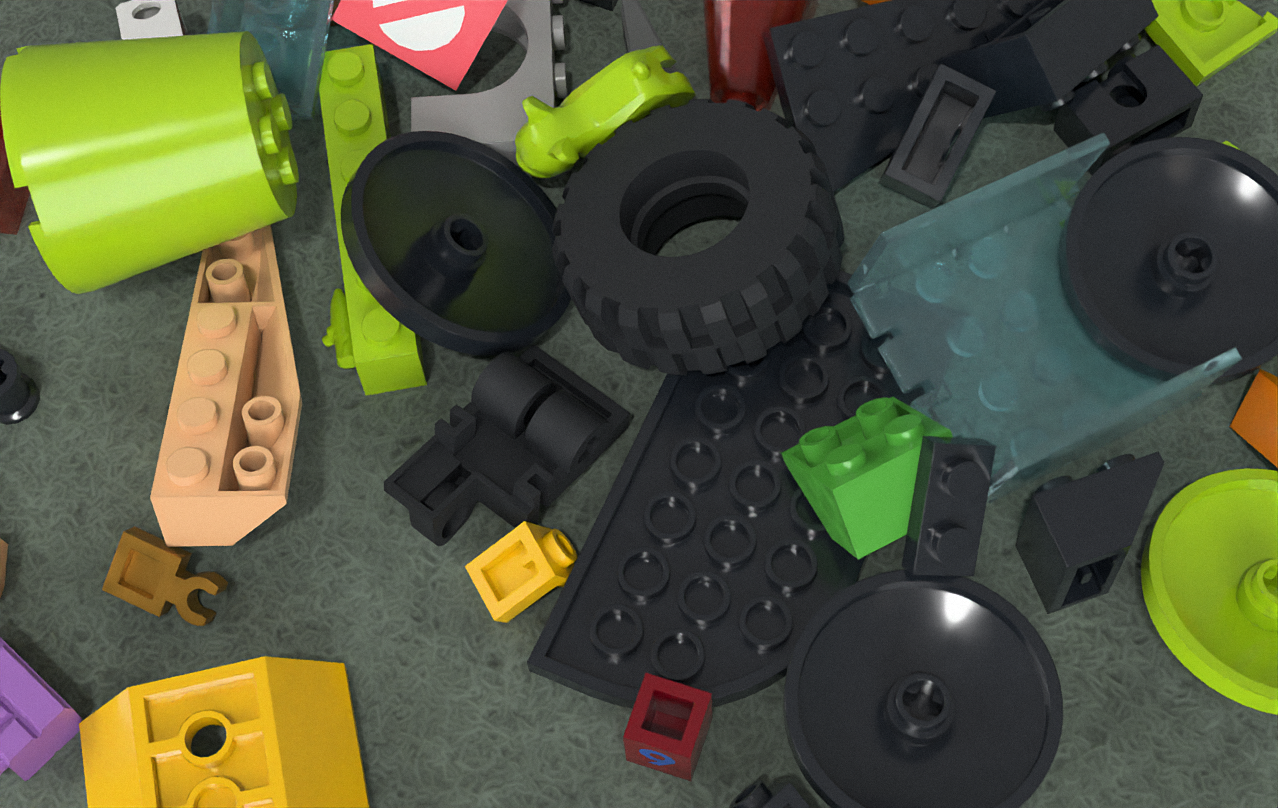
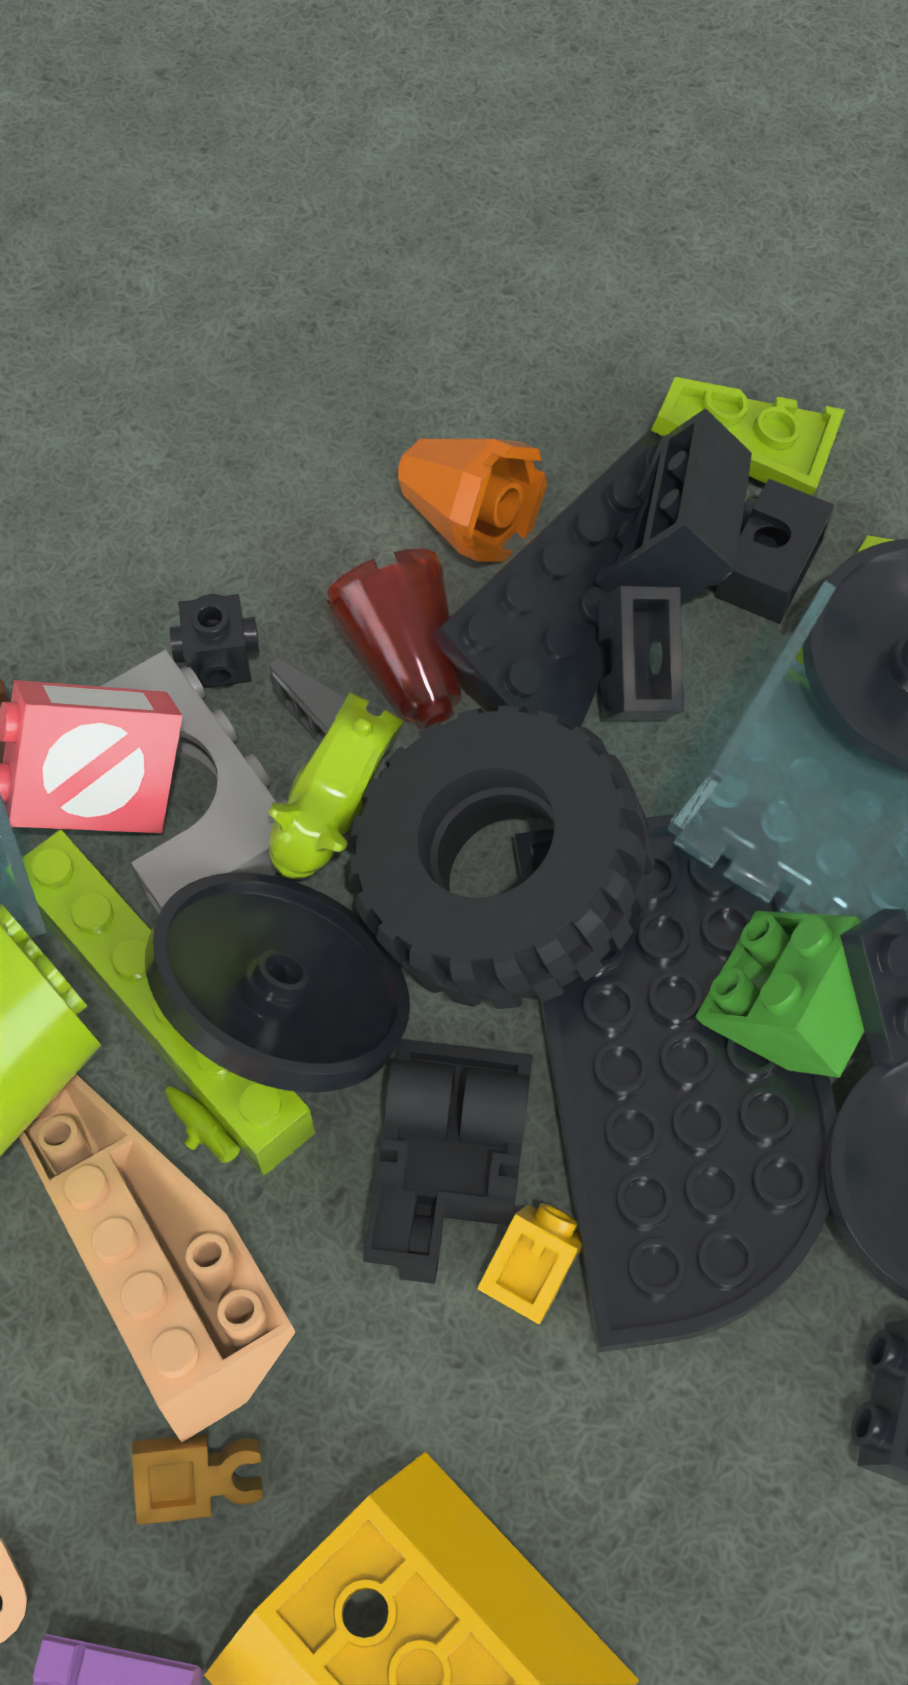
camera: 35 degrees left, 0 degrees up
(668, 726) = (771, 1330): dark red brick -> none

